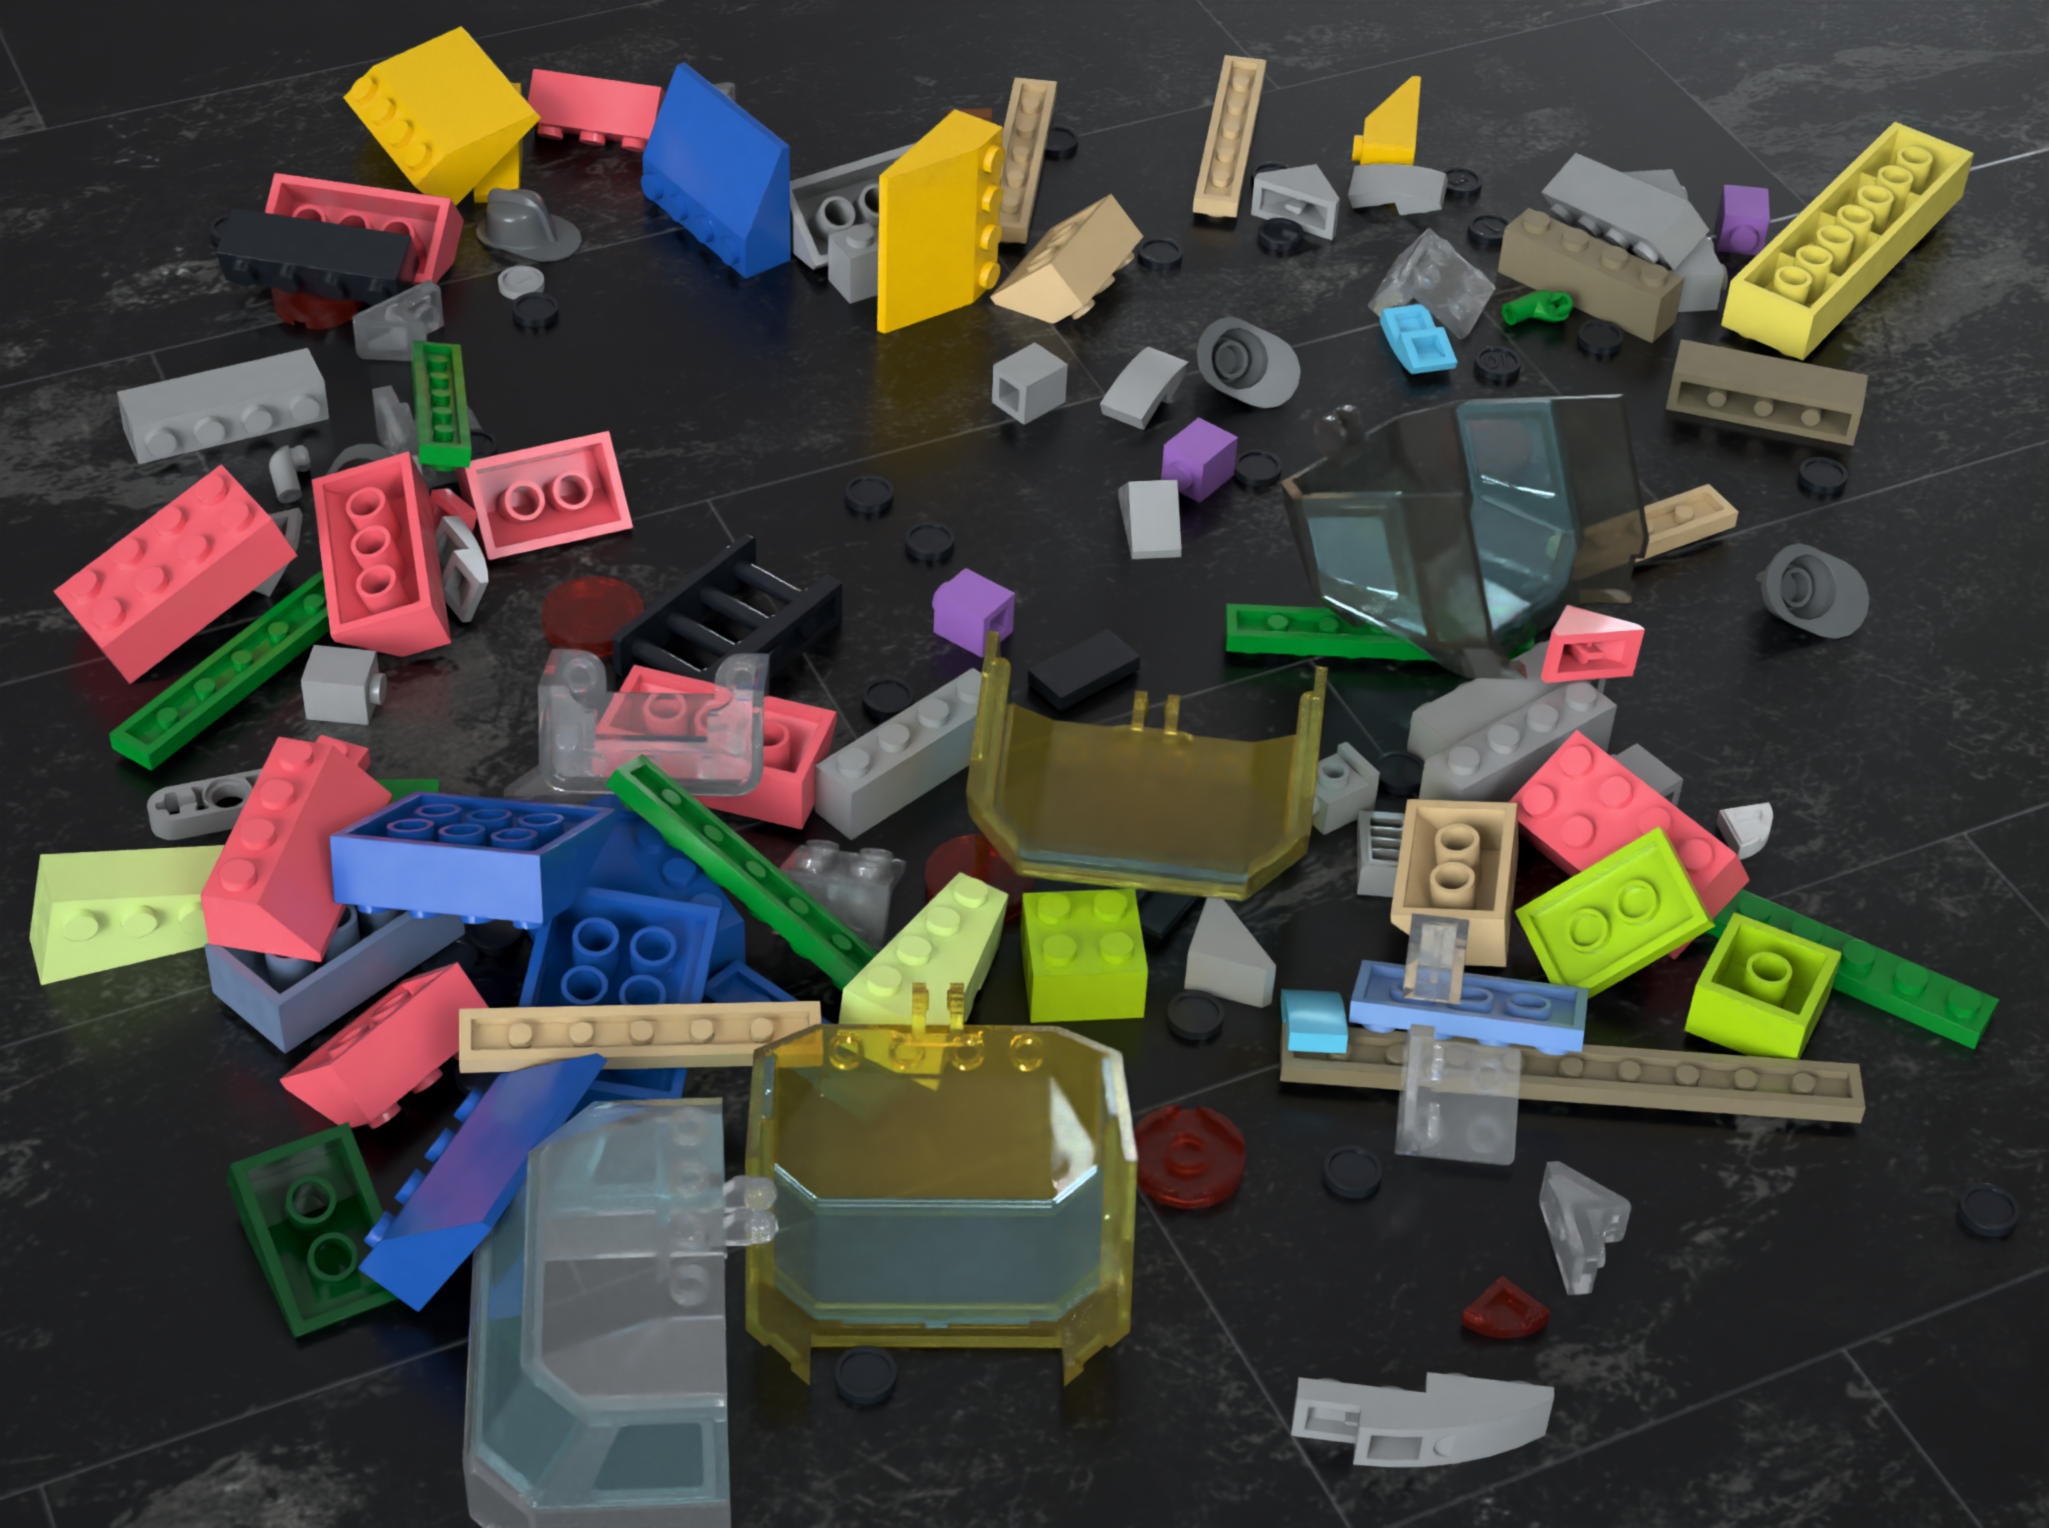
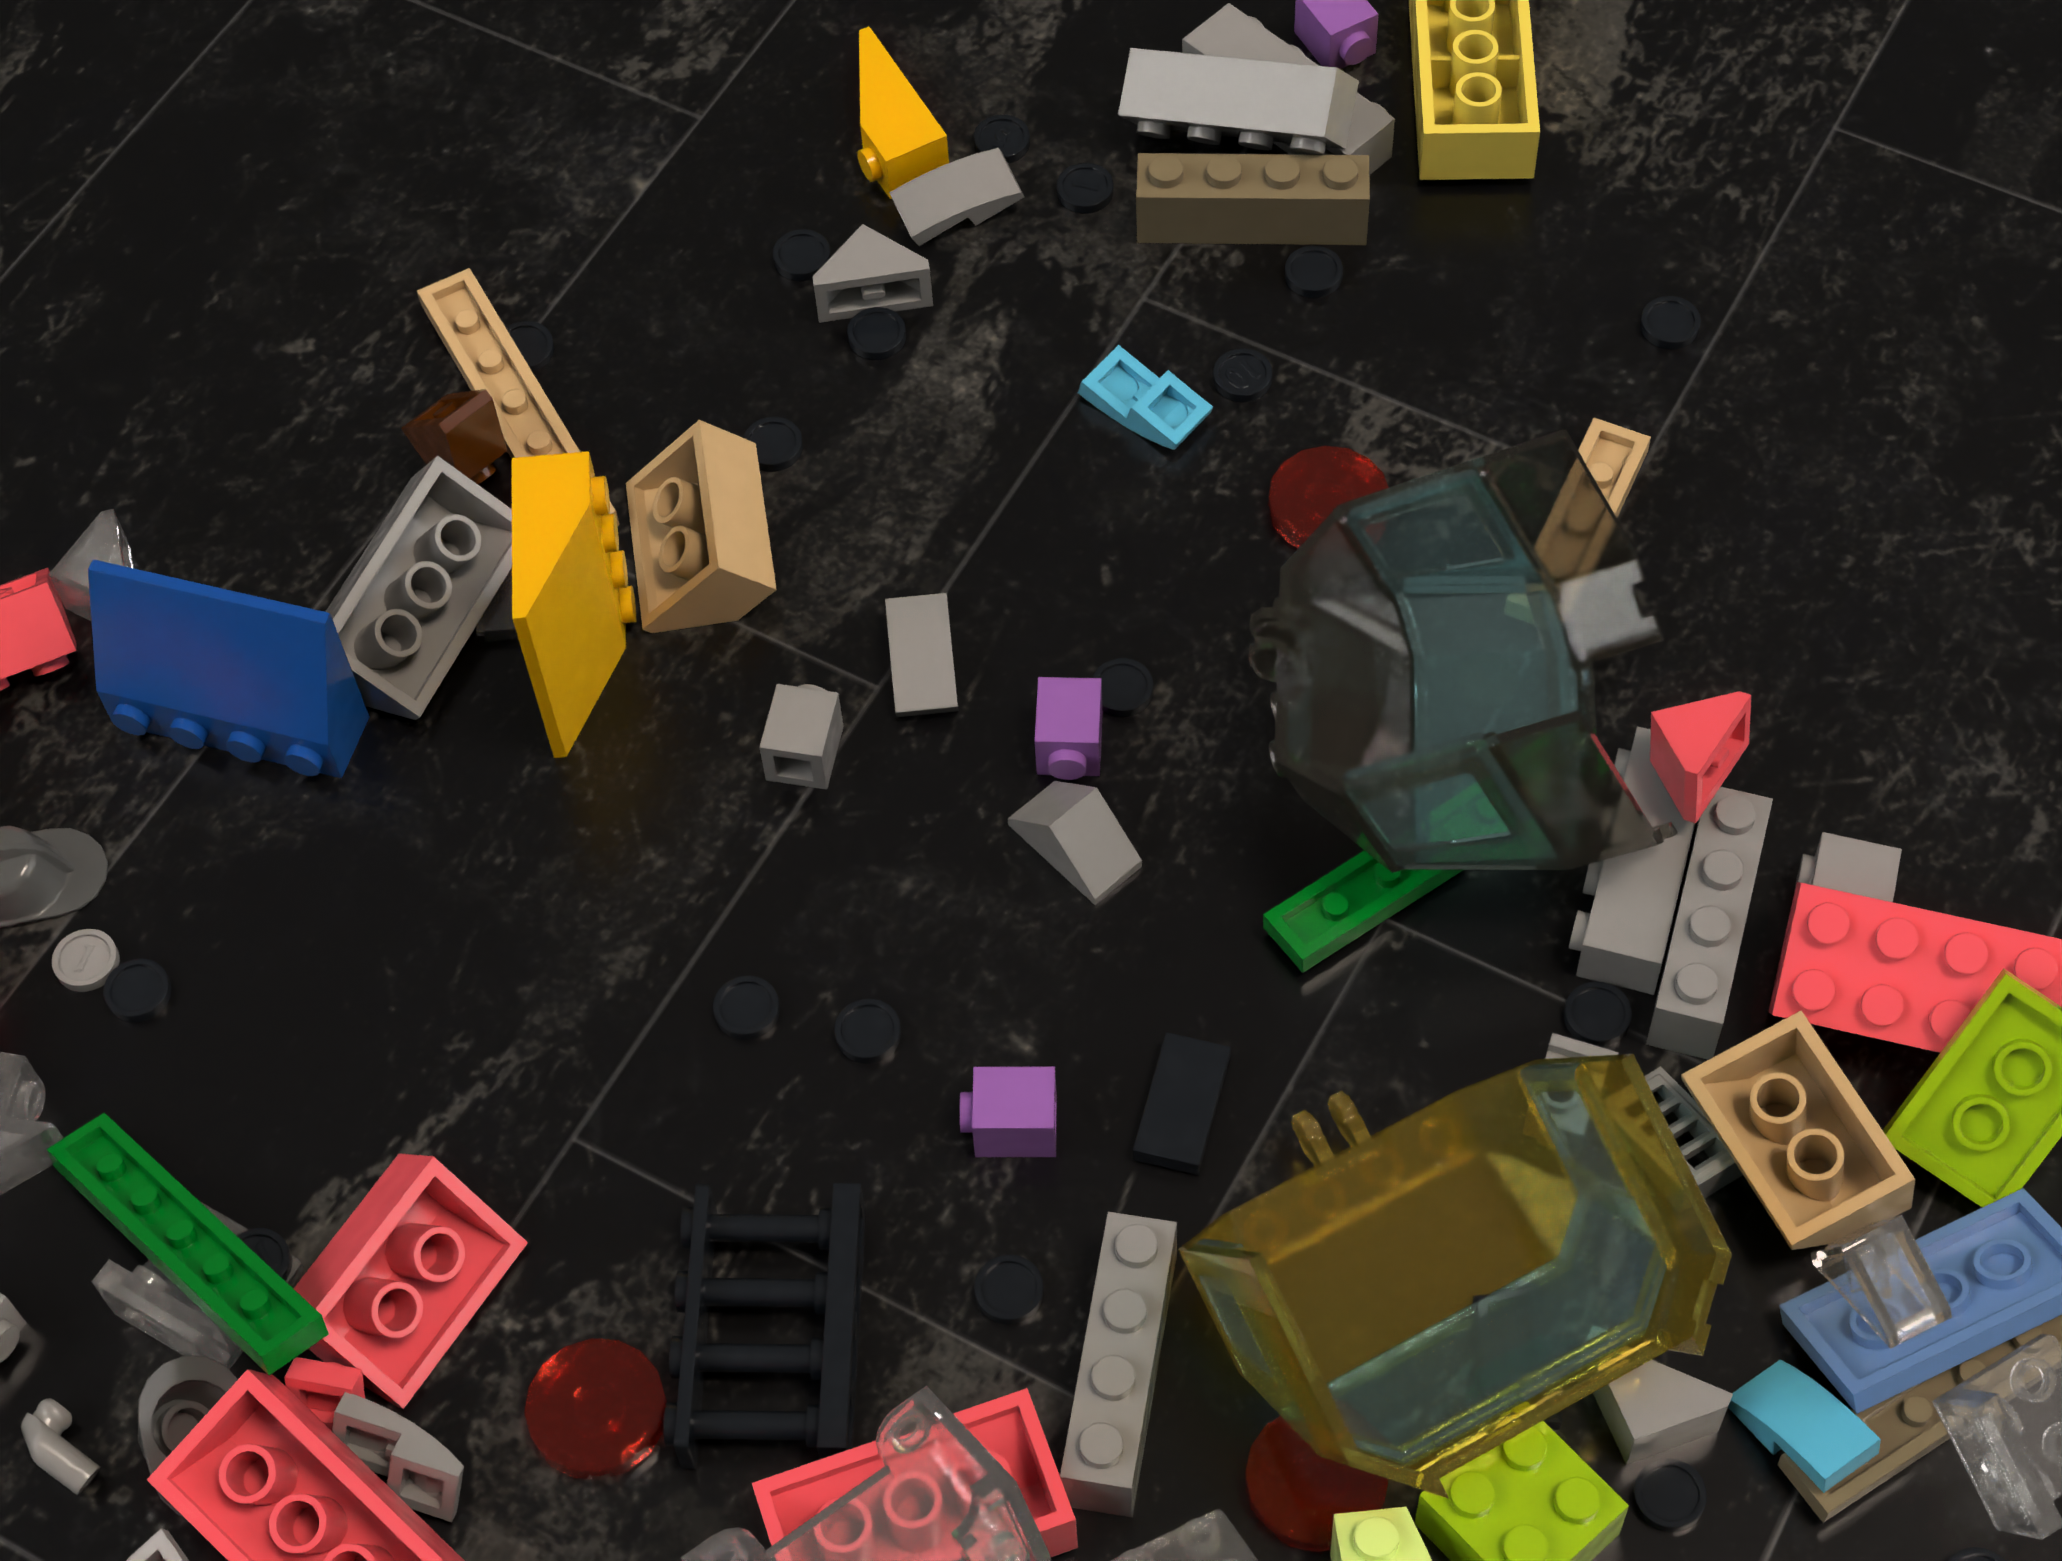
camera: 30 degrees left, 15 degrees up
(854, 262) = (471, 683): light grey brick -> none
(1229, 137) = (718, 228): tan plate -> none
(1248, 363) = (1012, 557): dark grey piece -> none
(1438, 281) = (1099, 304): clear bracket -> none
(1538, 305) = (1227, 268): green arm -> none
(1746, 828) = (1972, 852): white tile -> none
(1767, 392) = (1545, 250): dark tan brick -> none
(1814, 591) = (1803, 500): dark grey piece -> none

